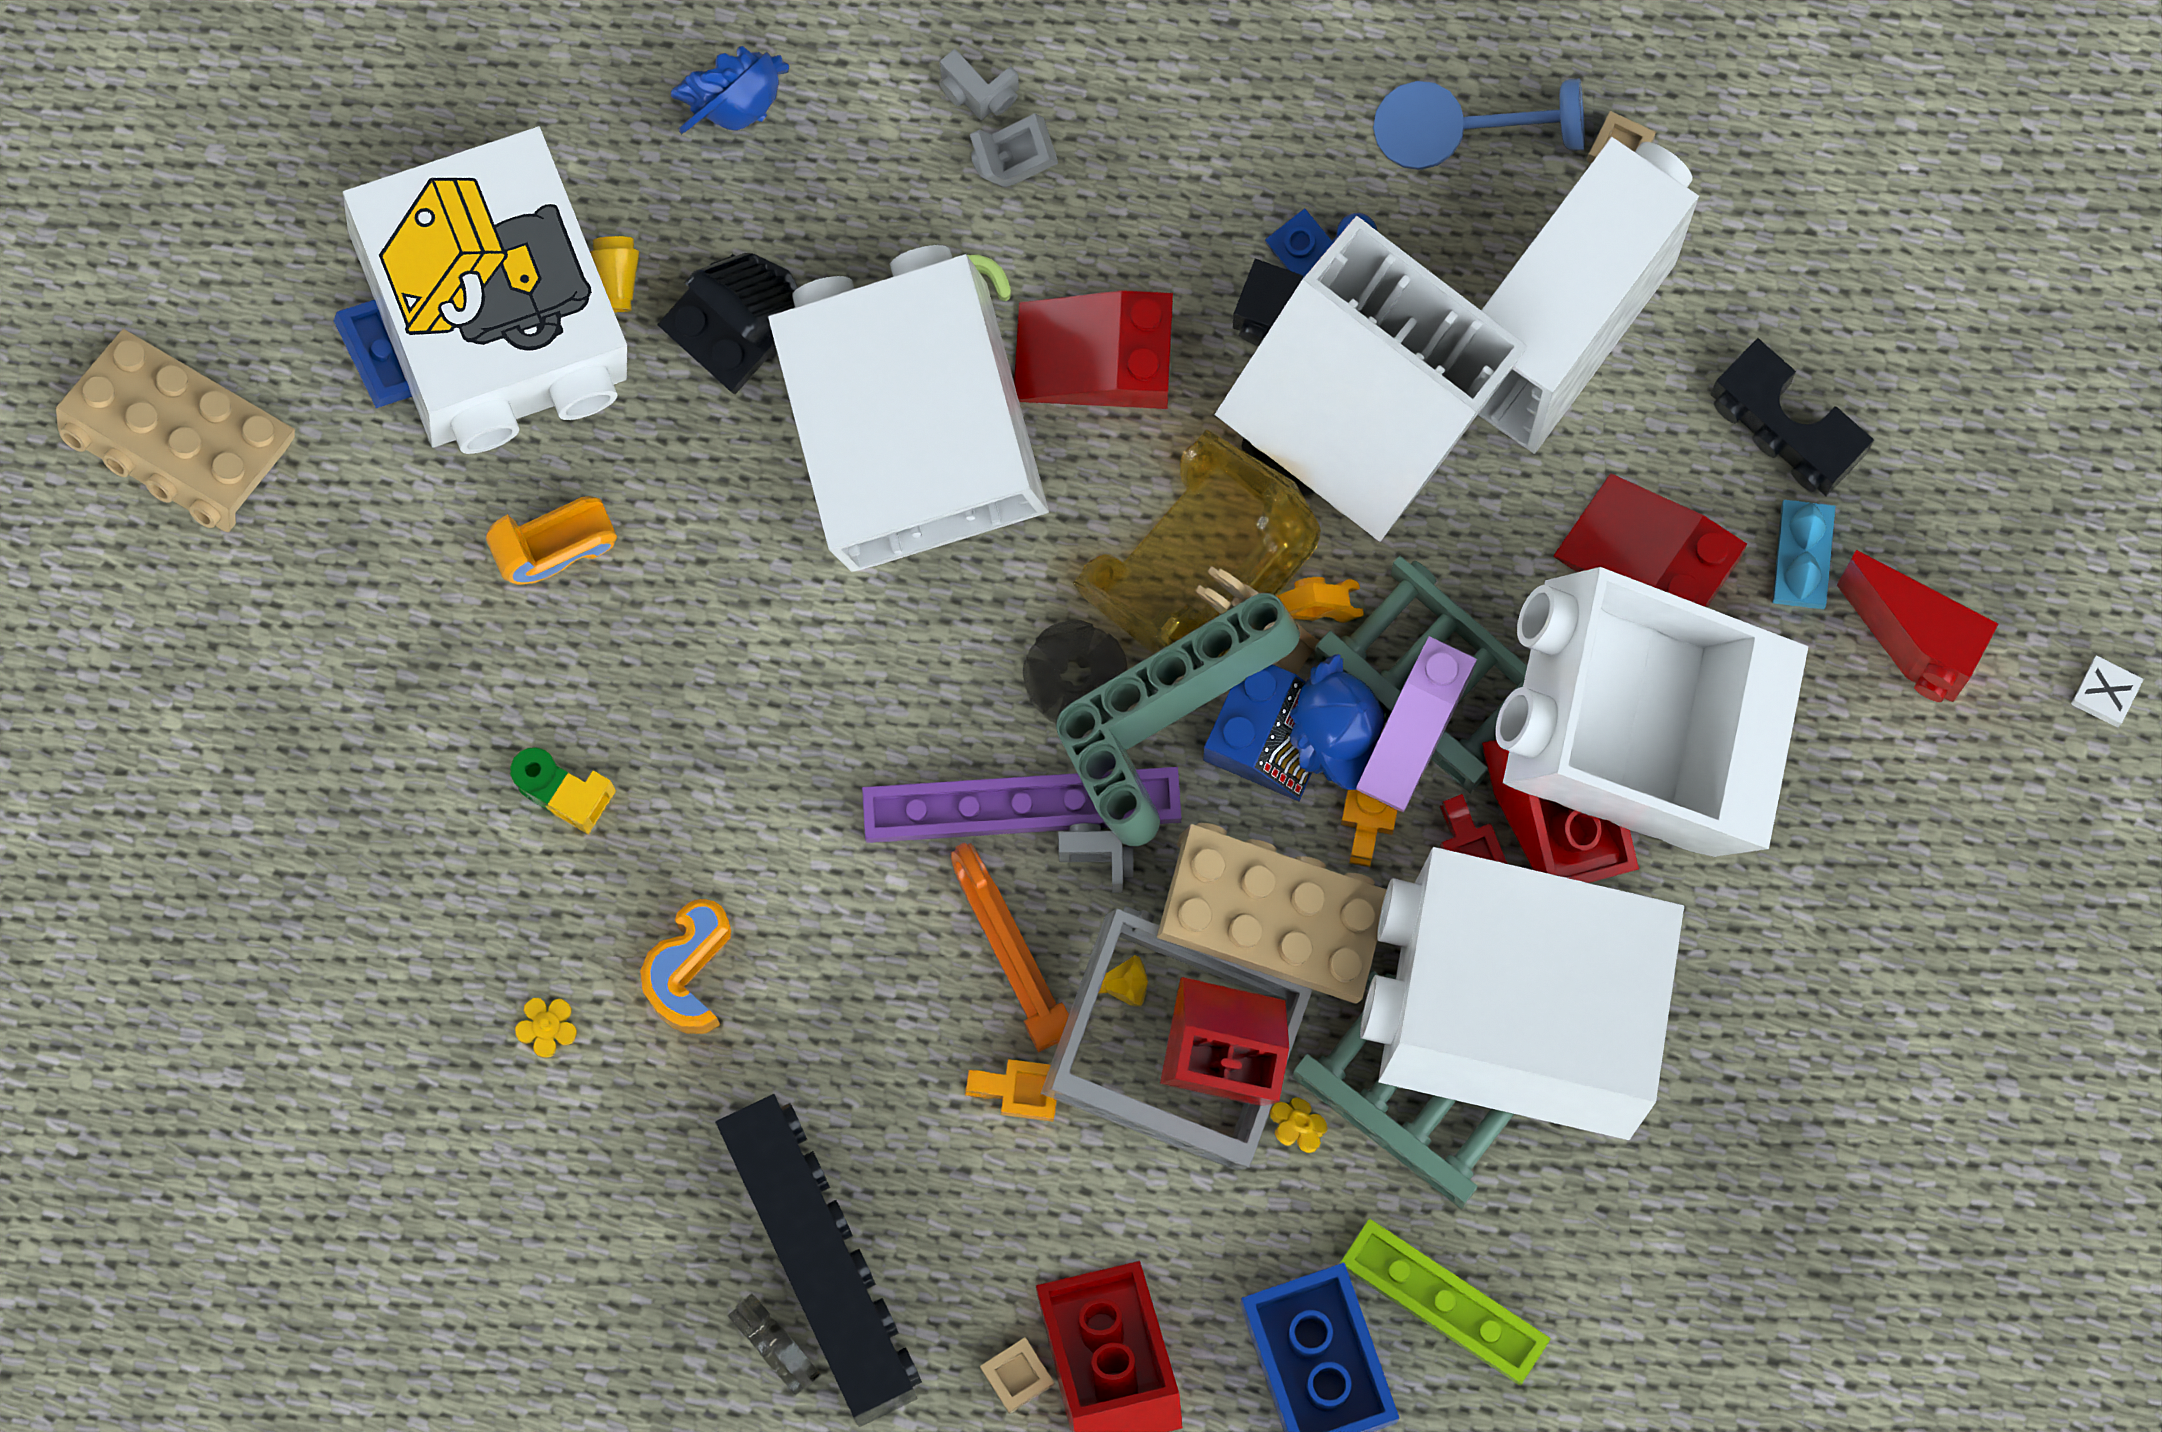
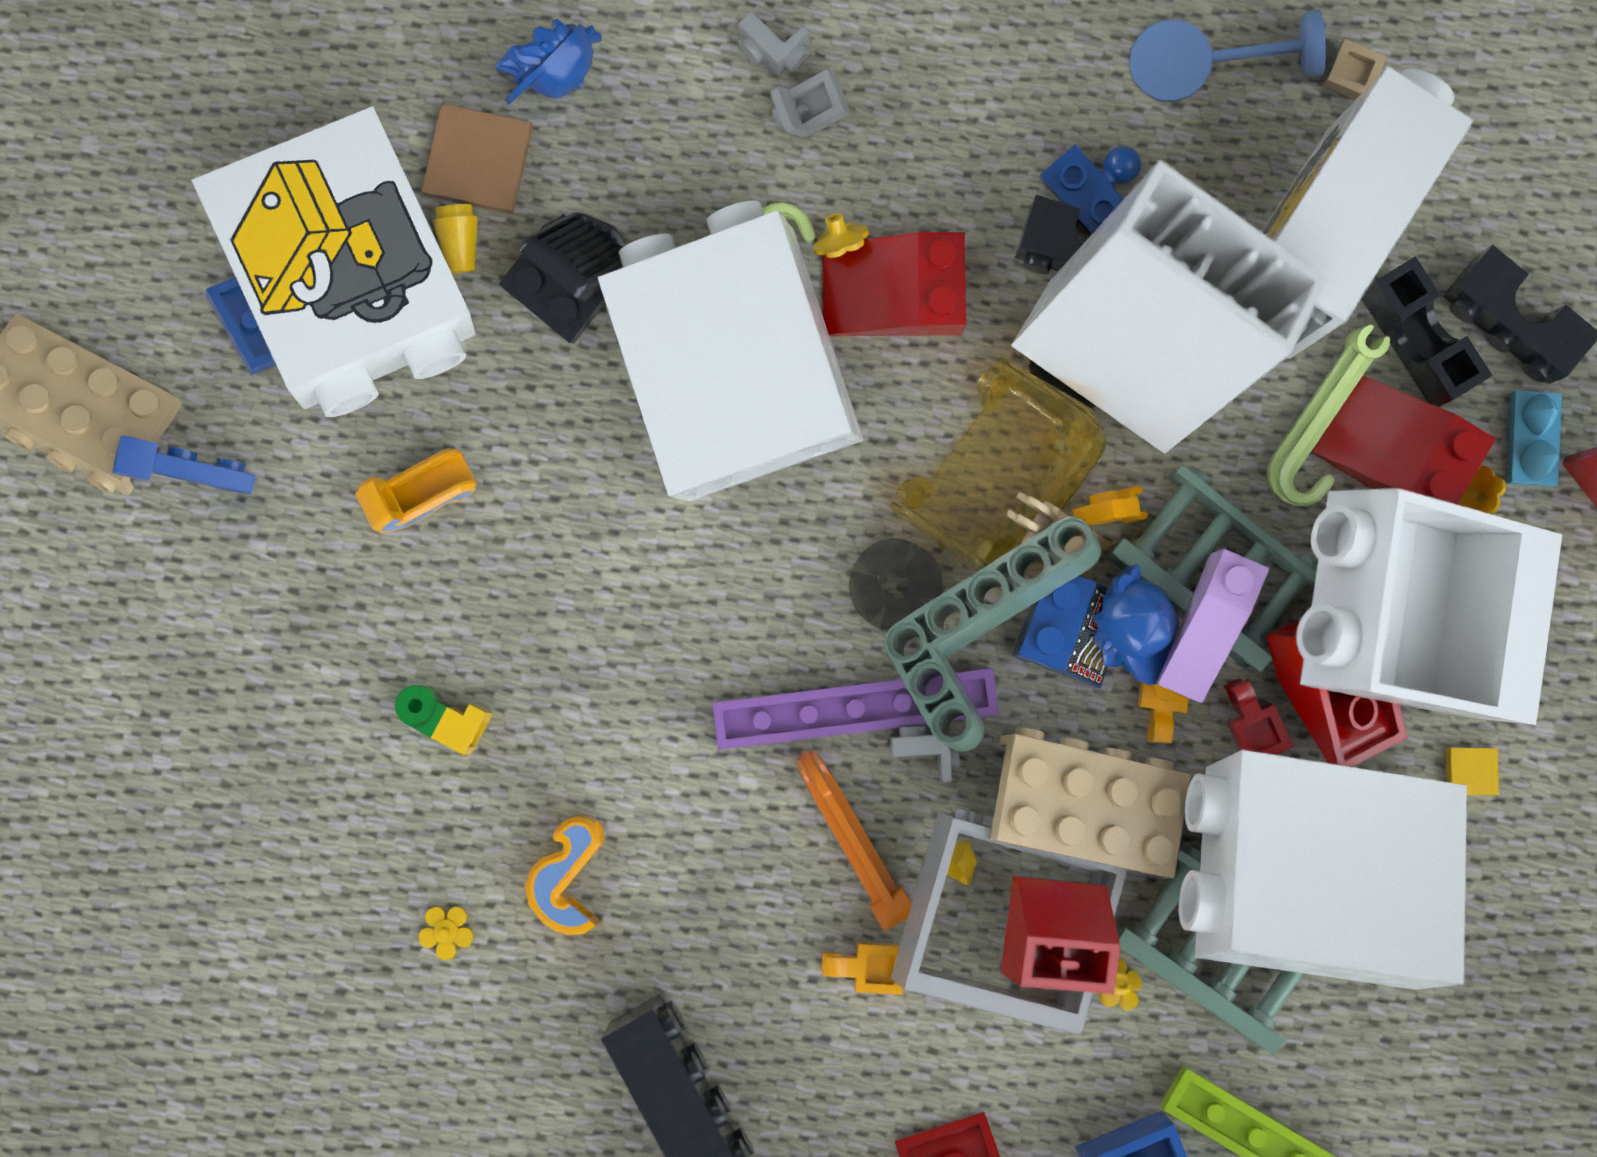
camera: 10 degrees left, 10 degrees up
(256, 485) = (140, 458): none -> blue plate
(642, 190) = (477, 158): none -> medium nougat tile
(1037, 293) = (840, 237): none -> yellow plant
(1563, 512) = (1318, 416): none -> yellowish green piece
(1662, 408) = (1435, 360): none -> black arch
(1714, 914) = (1473, 768): none -> yellow tile
(1739, 602) = (1484, 492): none -> yellow plant

